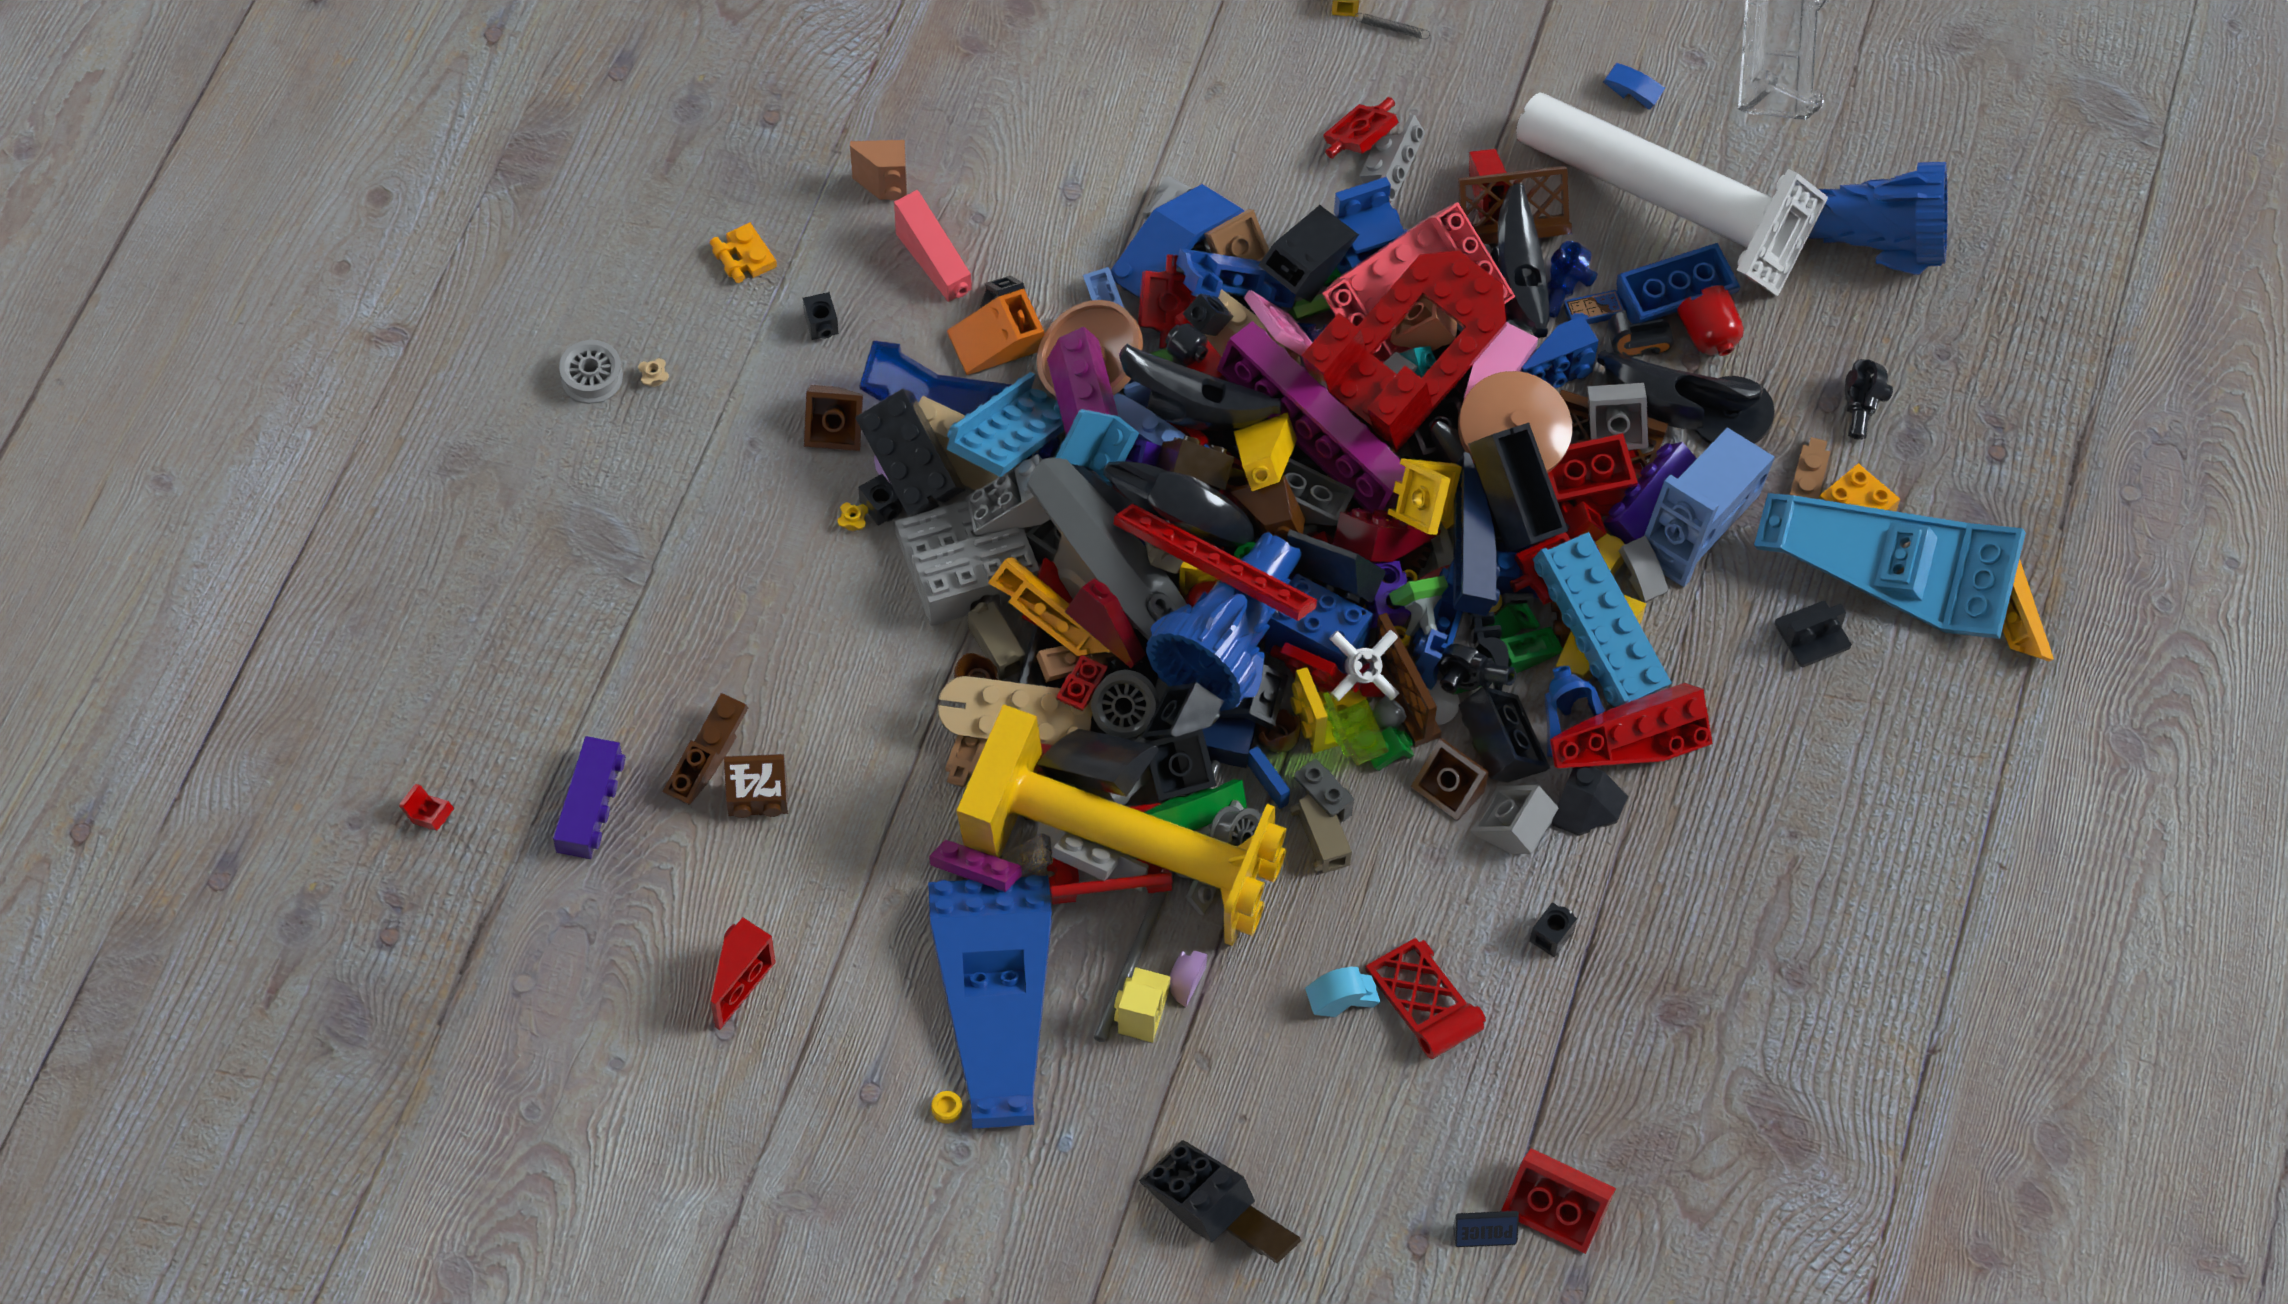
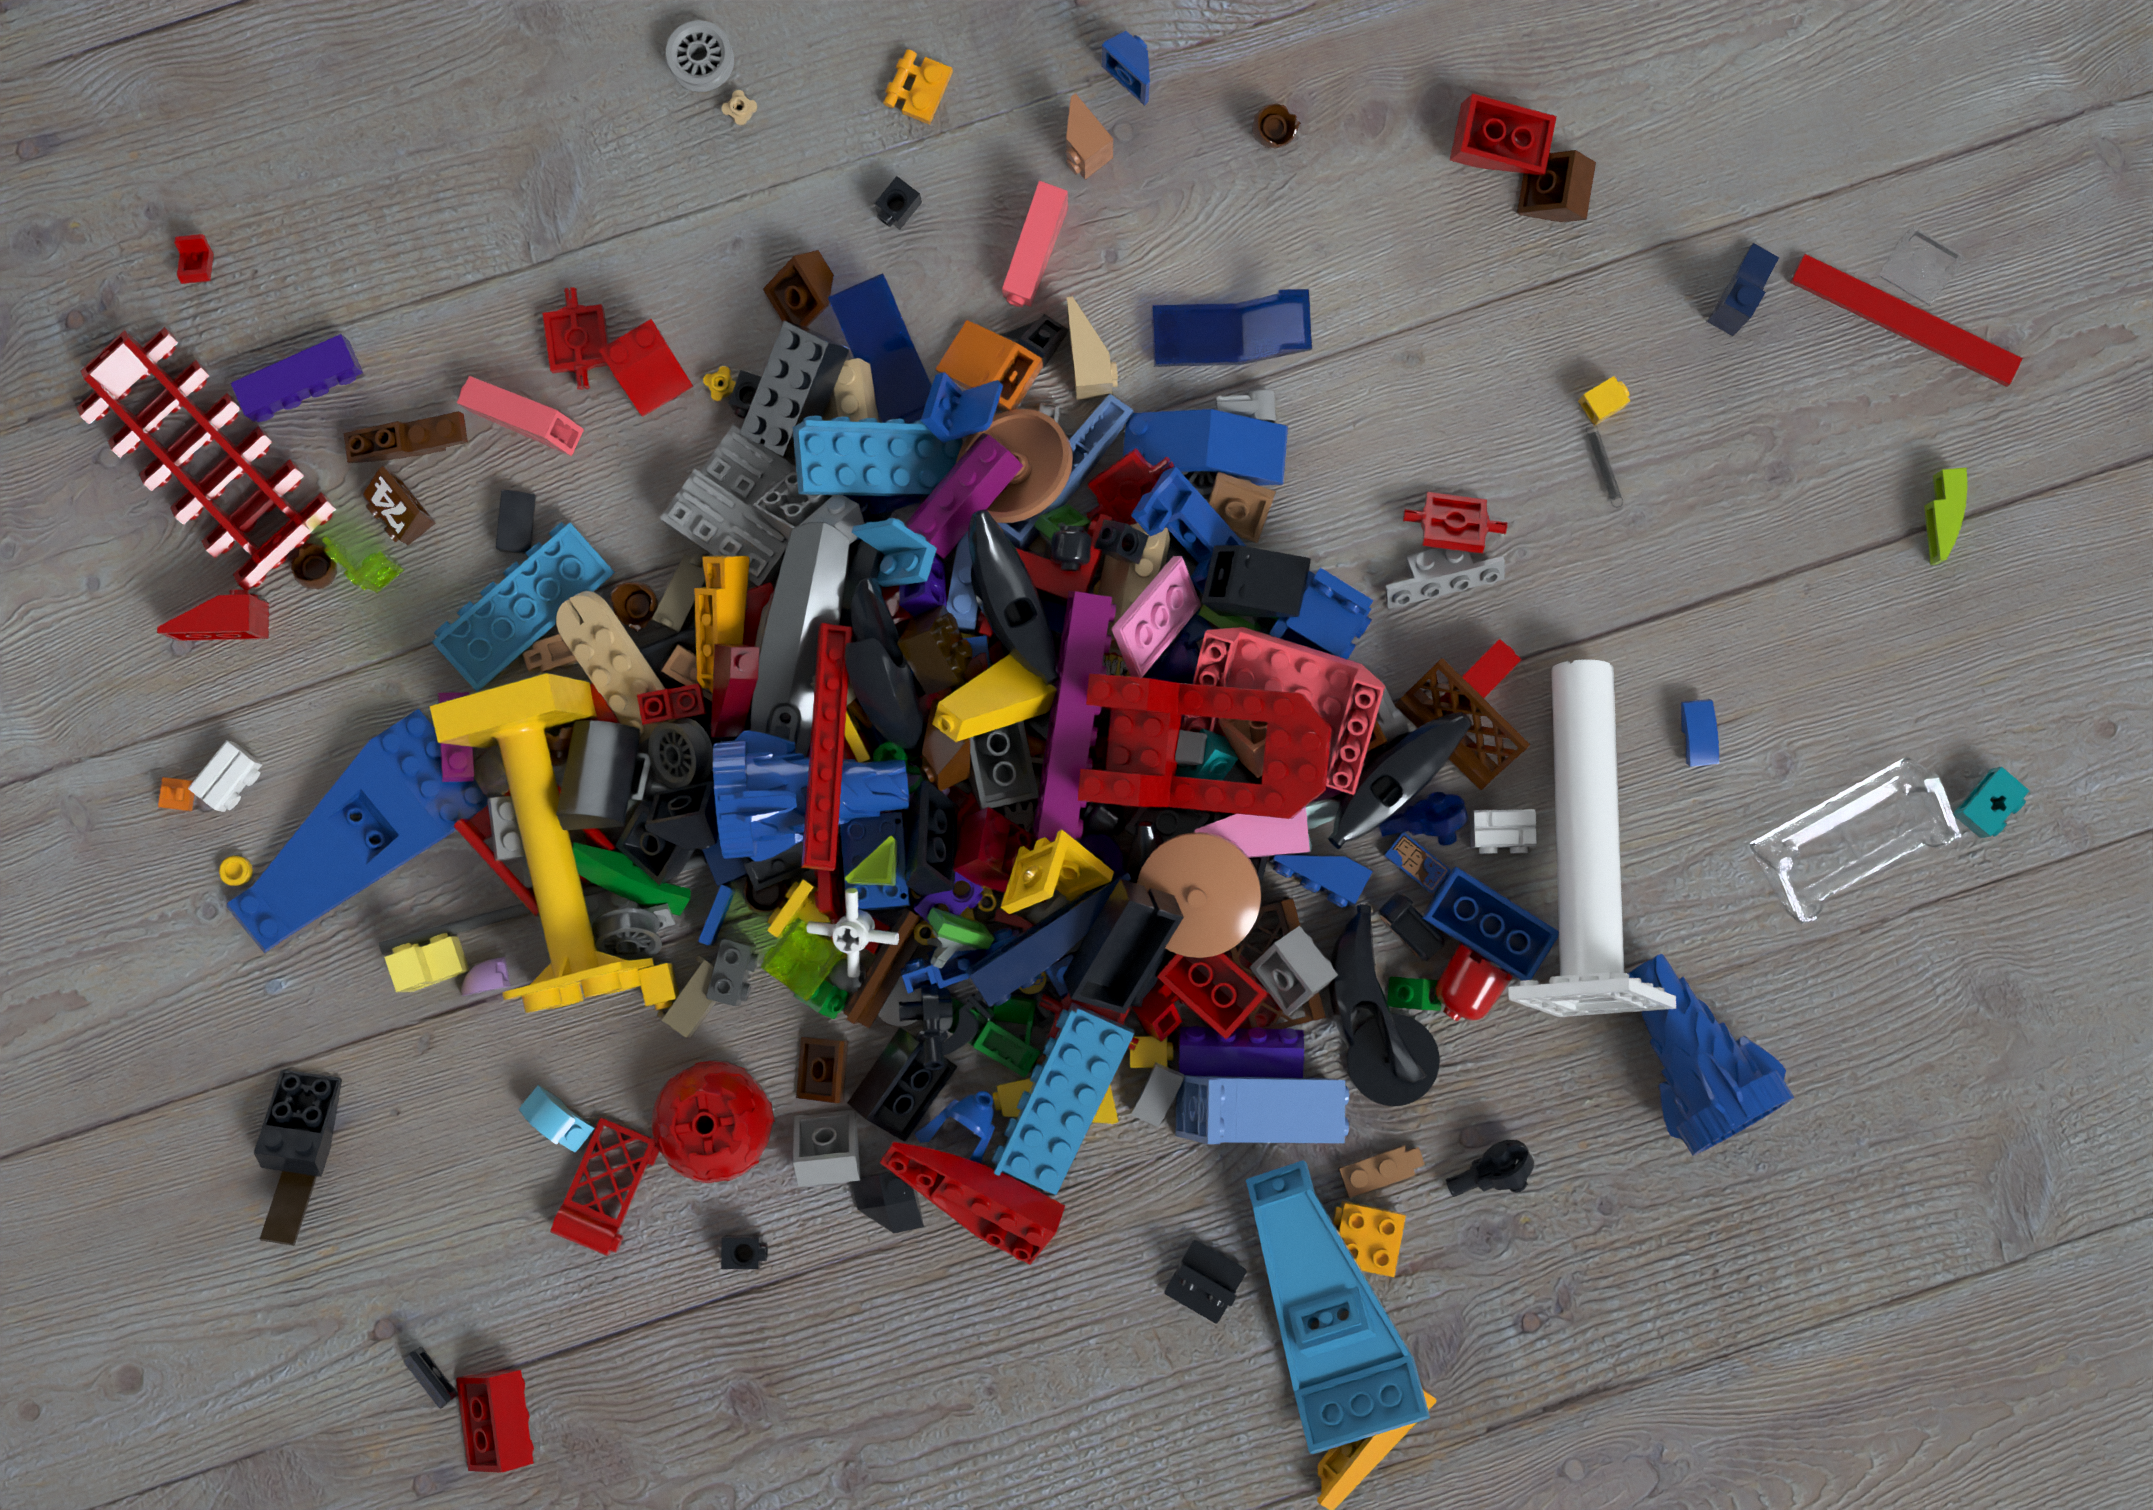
camera: 60 degrees right, 25 degrees up
(466, 904) = (113, 375): none -> red piece
(732, 587) = (575, 338): none -> red plate
(751, 880) = (313, 567): none -> reddish brown hair
(758, 658) = (520, 415): none -> coral slope
(779, 844) = (376, 569): none -> clear neon green bracket
(800, 546) = (646, 367): none -> red slope
(837, 722) = (515, 521): none -> black slope
(846, 1110) = (175, 794): none -> orange tile
(856, 113) = (1128, 62): none -> blue slope
(864, 1057) = (226, 777): none -> white brick
(908, 756) = (521, 605): none -> dark azure bracket
(975, 59) = (1274, 126): none -> reddish brown hair
(1023, 353) = (959, 413): none -> blue bracket
(1042, 264) = (1091, 360): none -> tan slope
(1107, 169) = (1232, 331): none -> clear blue windscreen
(1298, 853) = (659, 986): none -> yellow brick
(1333, 598) = (878, 867): none -> lime slope
(1430, 900) = (739, 1114): none -> red piece
(1612, 239) = (1503, 830): none -> white brick
(1693, 361) = (1412, 993): none -> green bracket

